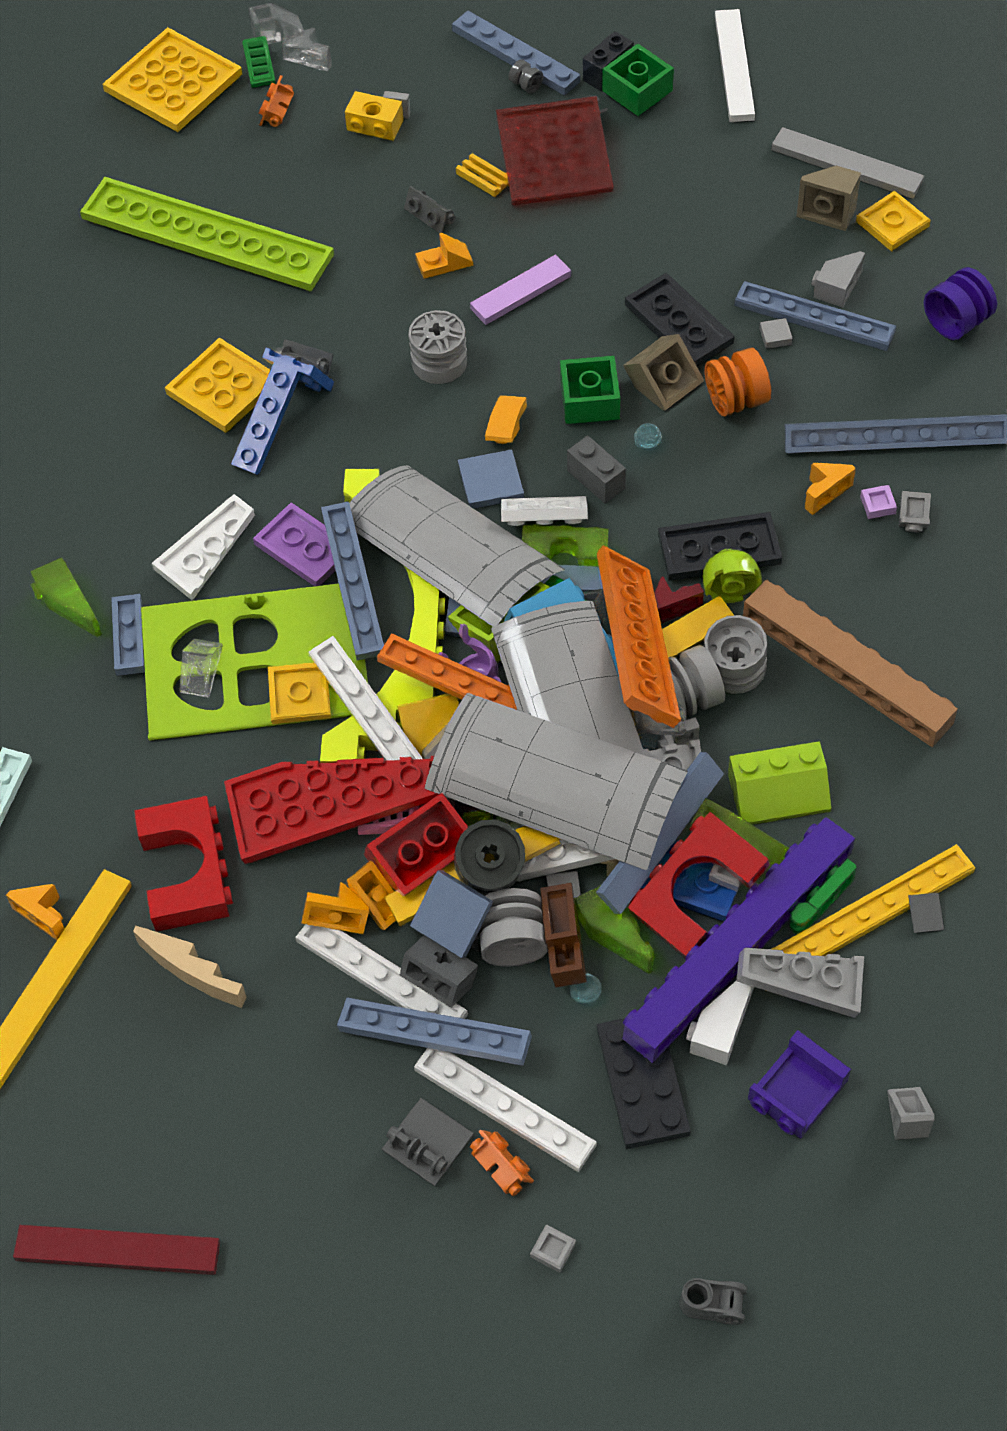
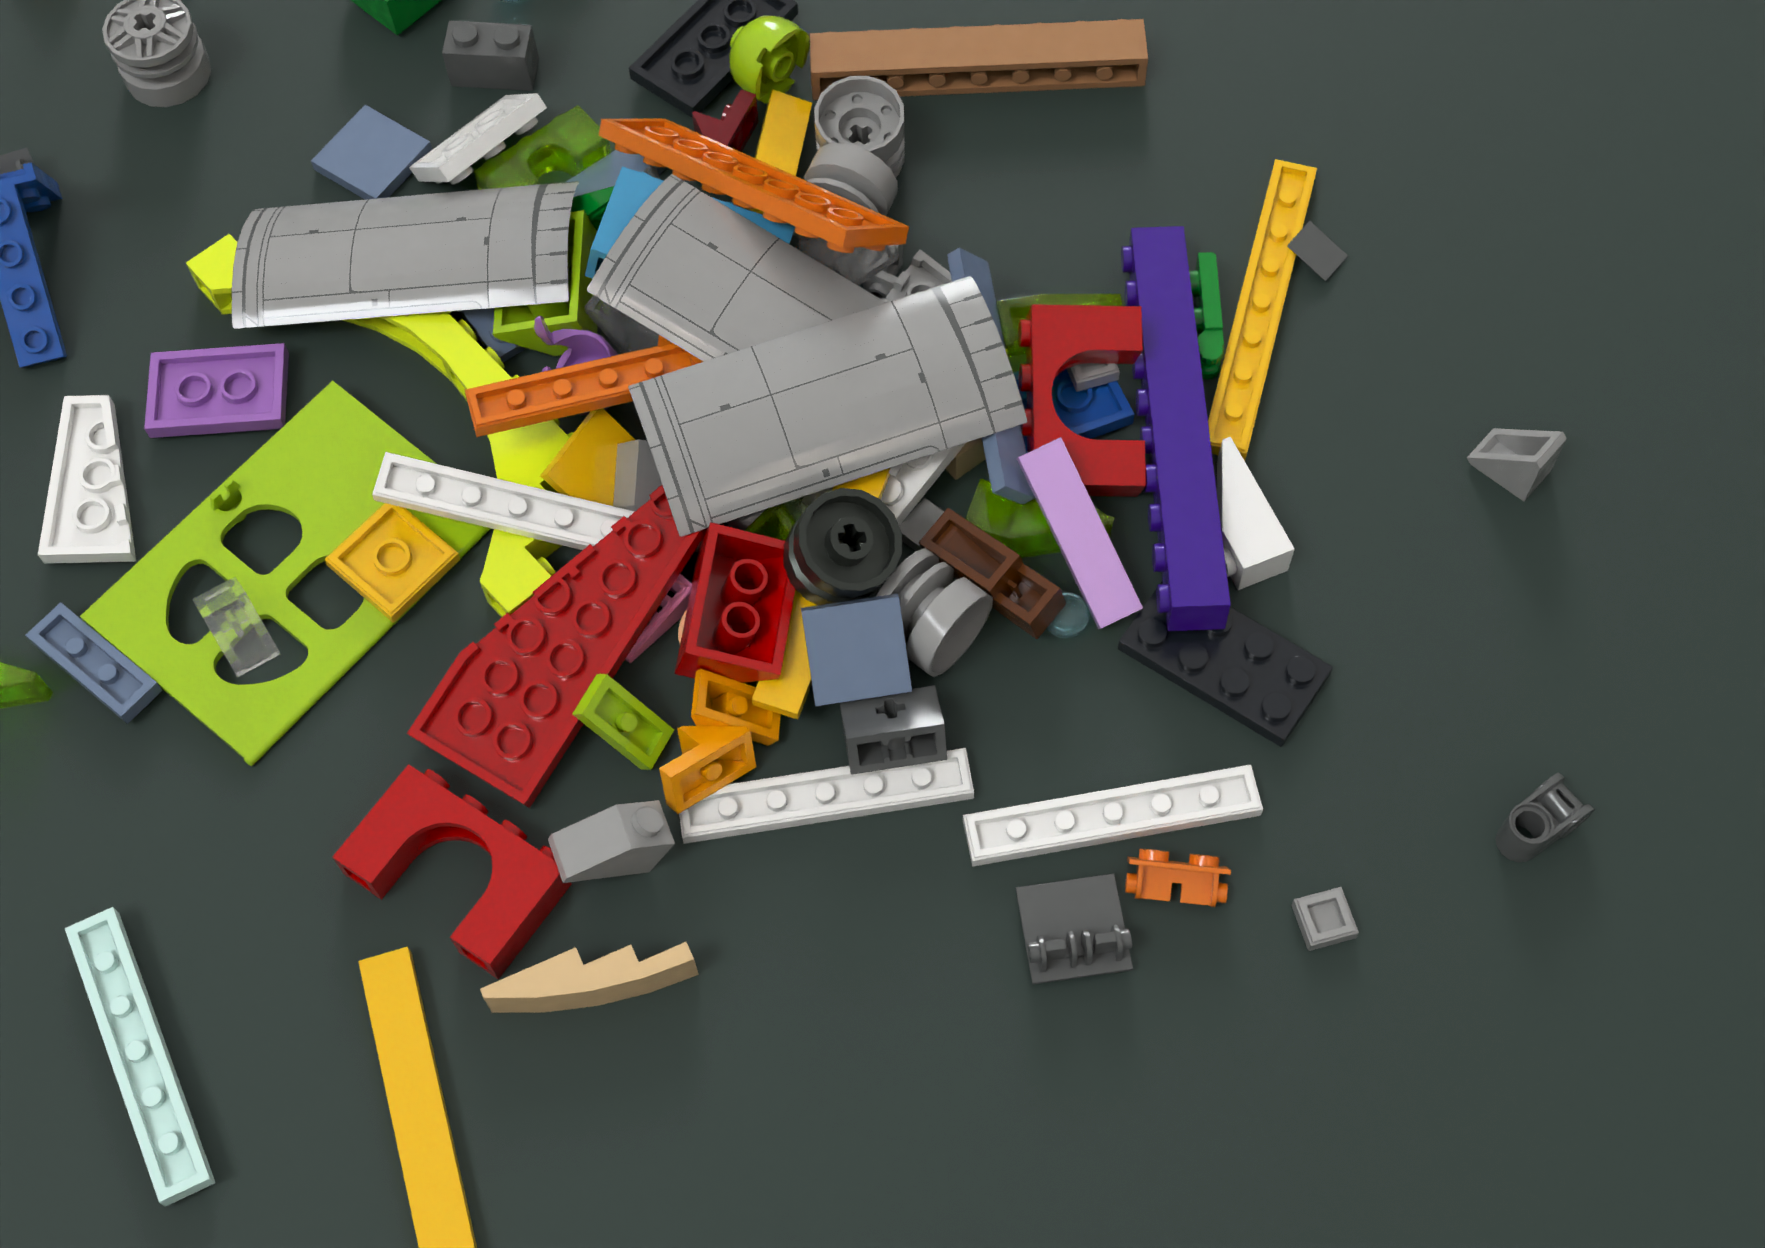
camera: 45 degrees left, 5 degrees up
(36, 906) = (312, 1082): light orange slope -> none
(257, 910) = (613, 842): none -> light grey slope
(319, 858) = (623, 721): none -> lime plate
(352, 580) = (331, 379): sand blue plate -> none
(435, 1031) = (960, 800): sand blue plate -> none
(505, 419) = (323, 76): light orange slope -> none
(625, 951) = (1079, 533): none -> lavender tile
(780, 783) = (1042, 232): lime slope -> none
(799, 1085) = (1385, 524): dark purple panel -> none
(816, 980) = (1290, 404): light grey wing -> none

